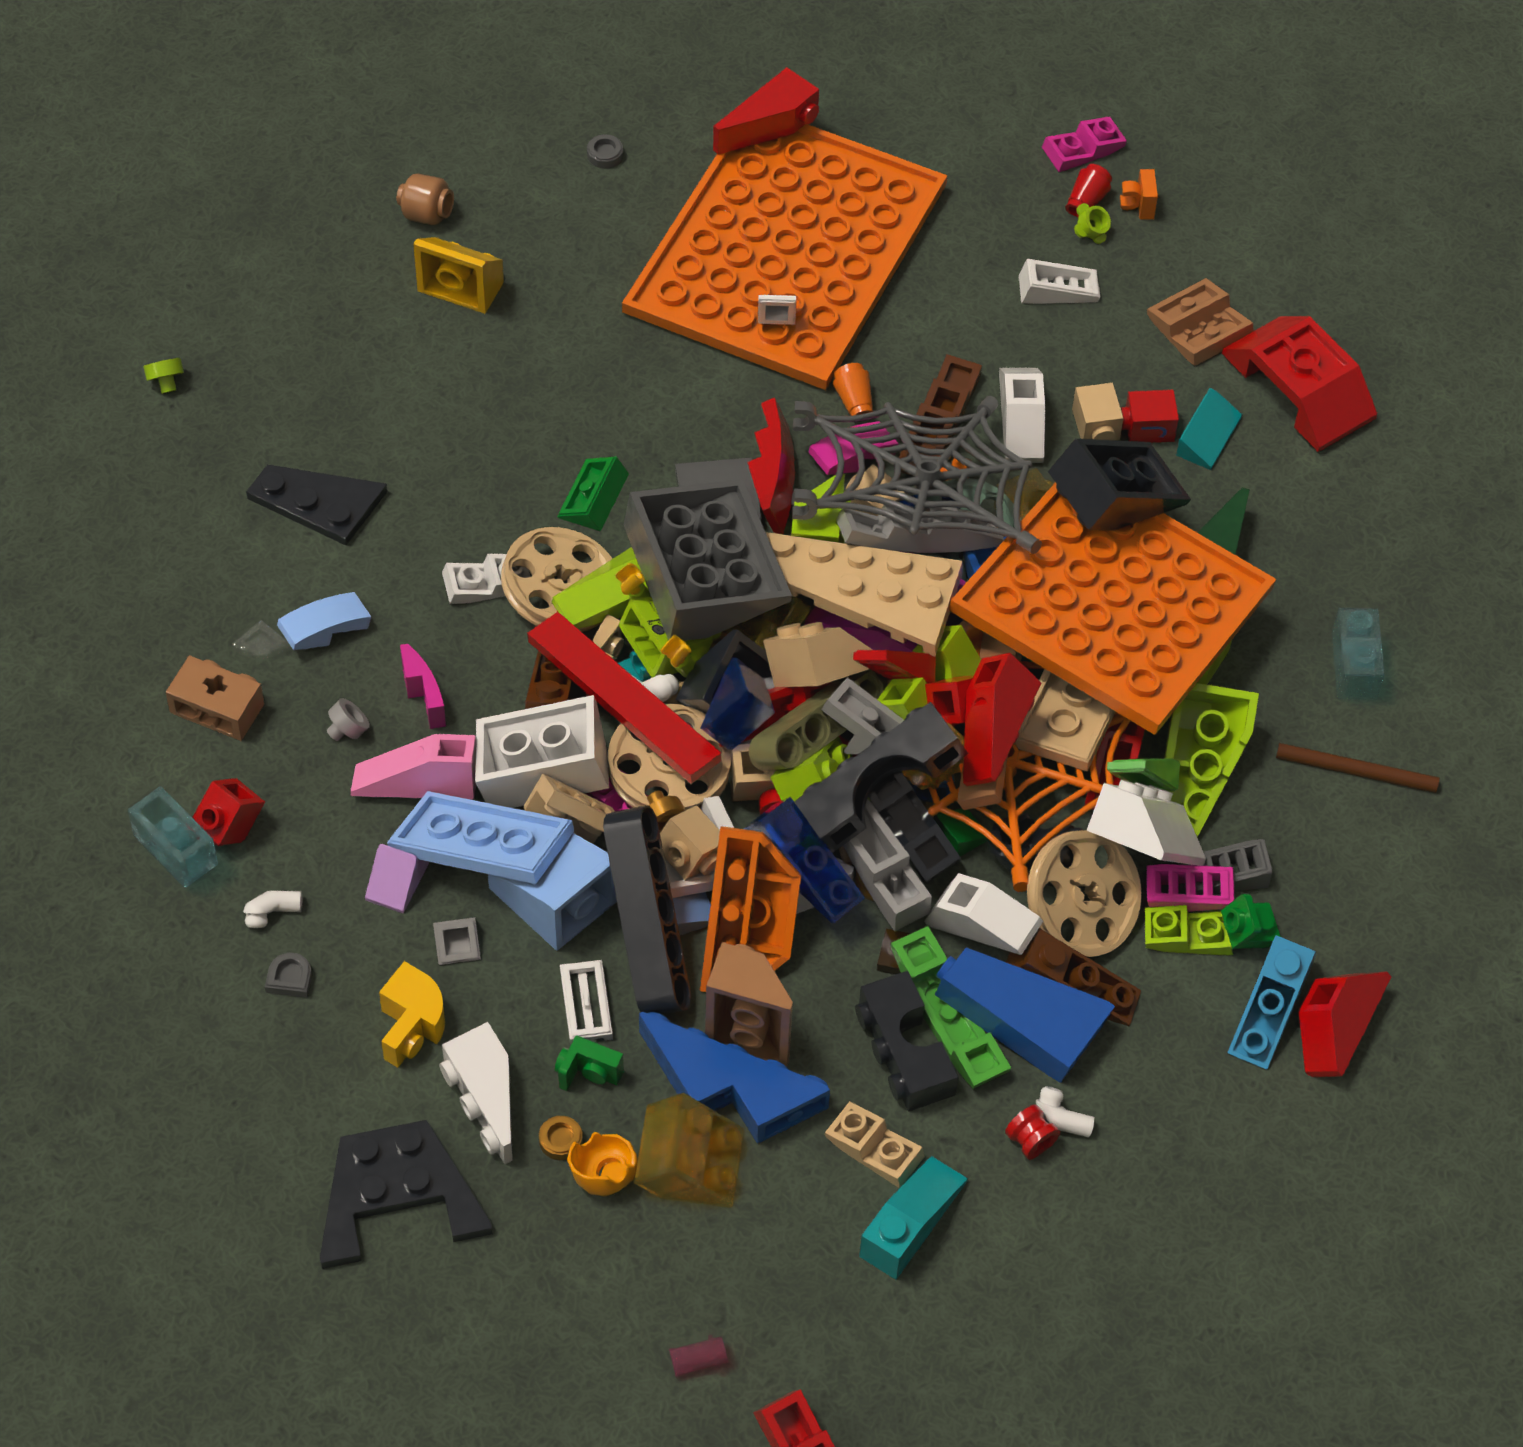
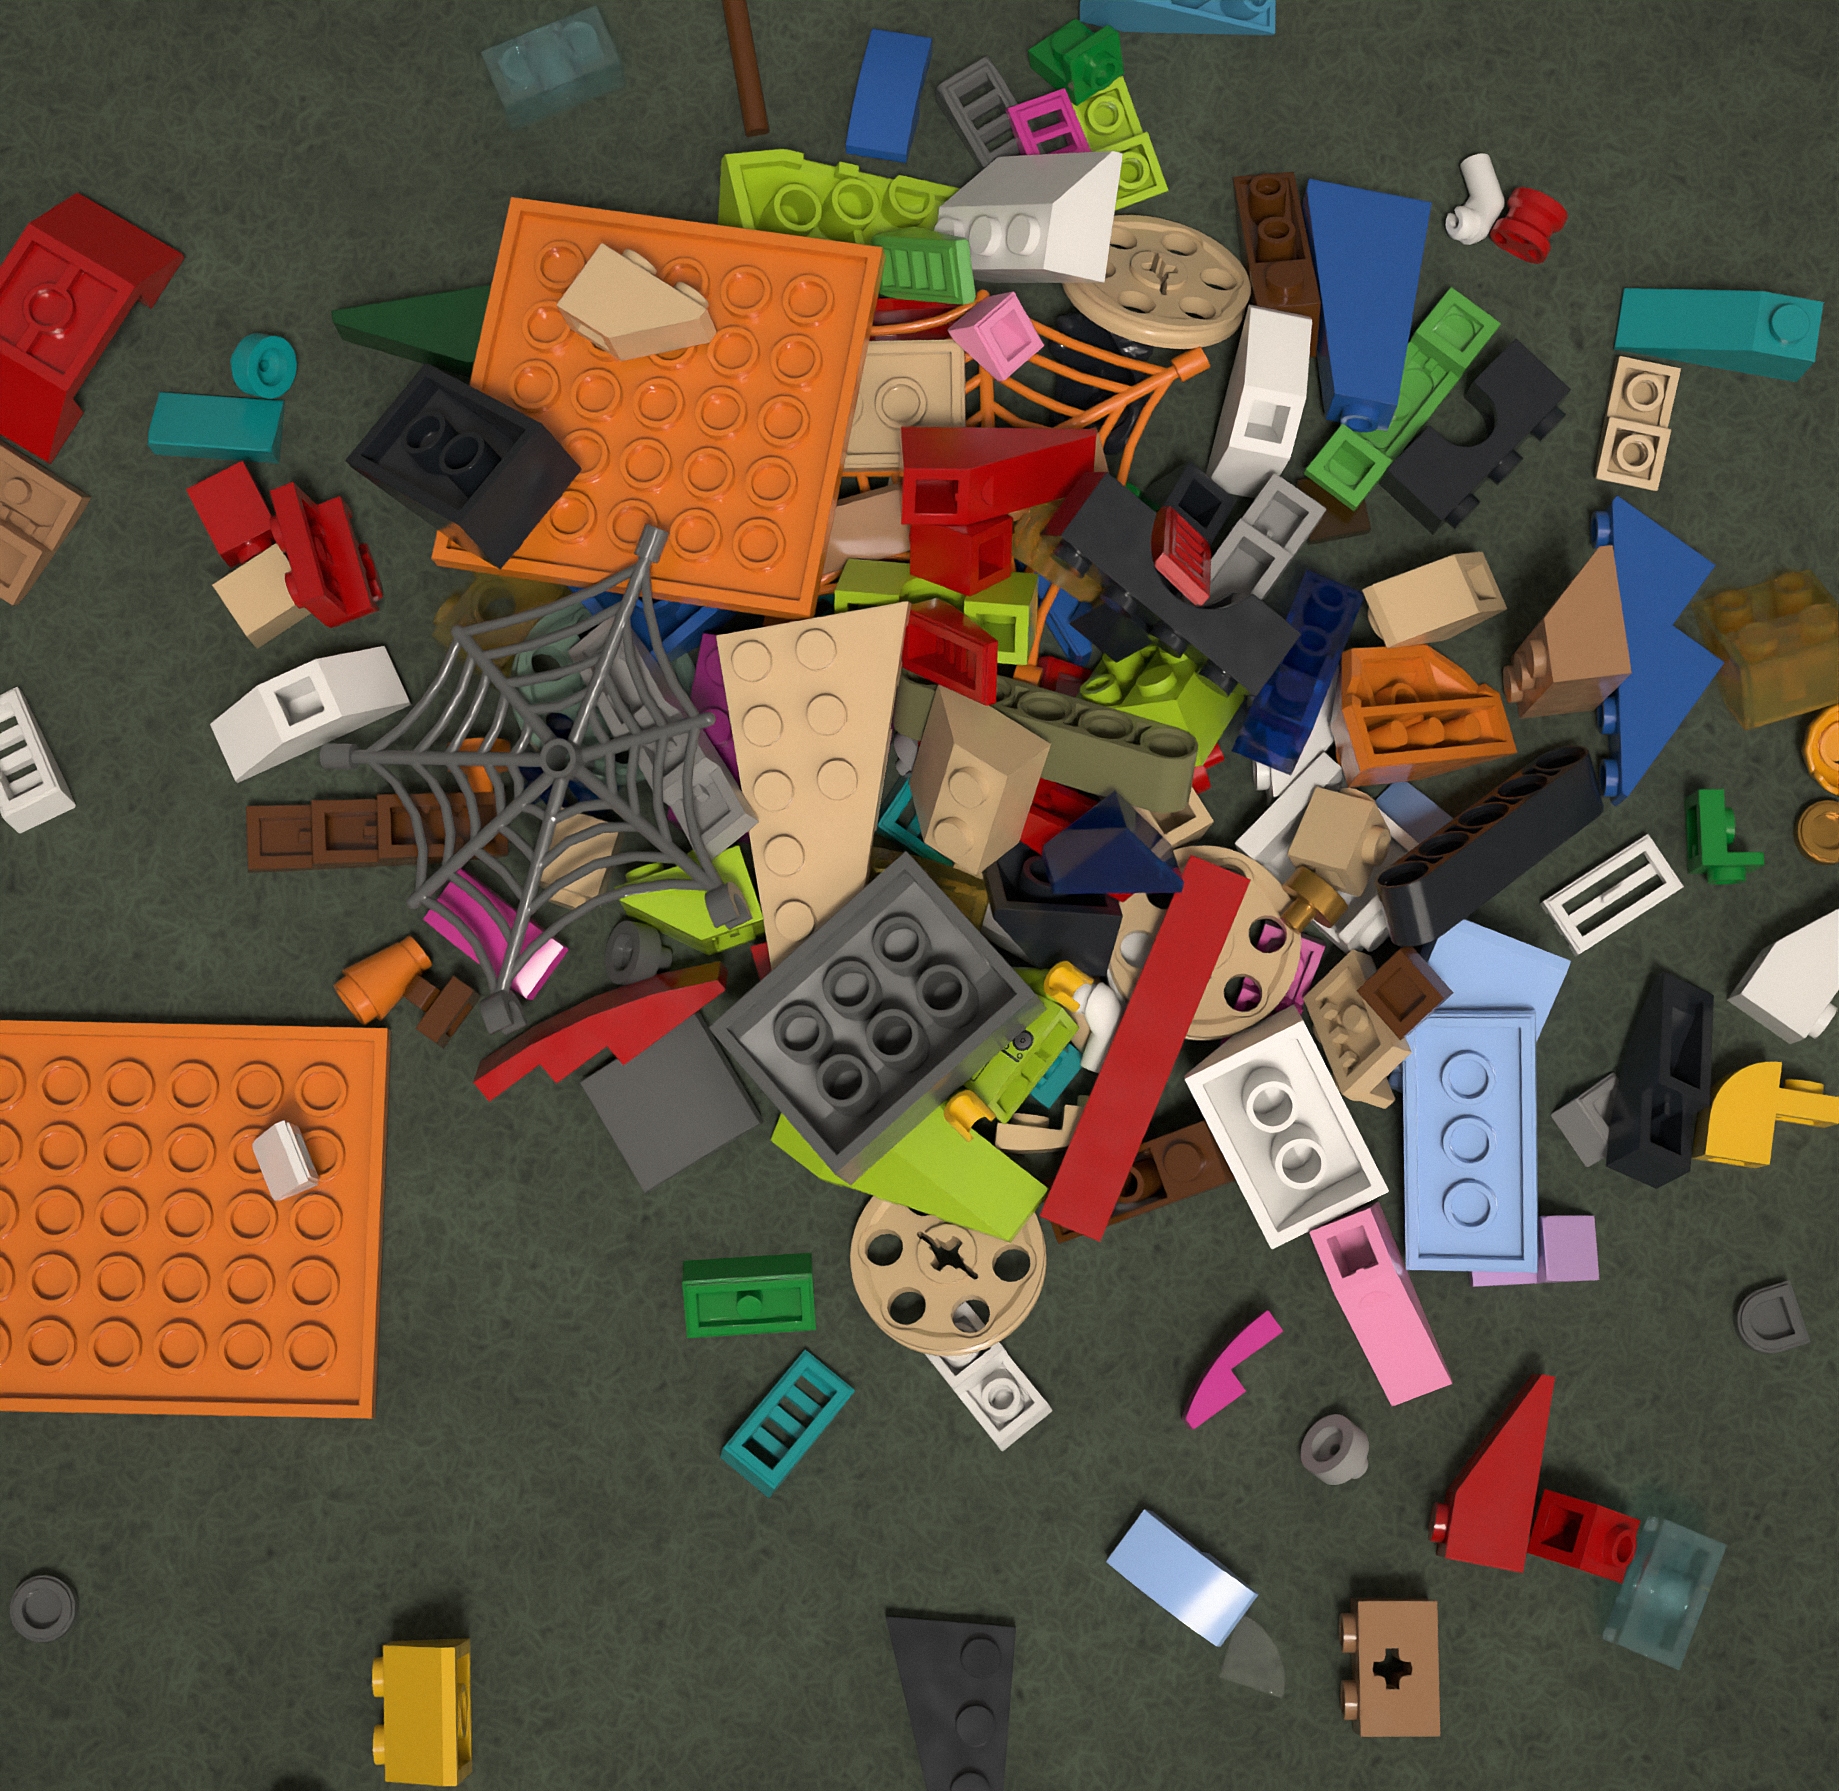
camera: 115 degrees left, 25 degrees up
(268, 902) = (1678, 1408): white arm -> none
(275, 778) = (1494, 1494): none -> red slope
(461, 970) = (1662, 1083): none -> black slope
(503, 455) = (750, 1466): none -> teal slope
(582, 814) = (1404, 991): none -> reddish brown tile
(812, 957) = (1434, 601): none -> tan slope
(826, 404) = (443, 1009): none -> reddish brown tile
(860, 715) = (1062, 658): light grey slope -> none
(899, 803) = (1181, 555): none -> red slope
(1080, 778) = (997, 335): none -> bright pink slope
(1104, 421) = (328, 566): none -> red slope
(1177, 587) = (632, 311): none -> tan slope
(1234, 459) = (263, 365): none -> teal tile
(1264, 812) = (888, 95): none -> blue slope

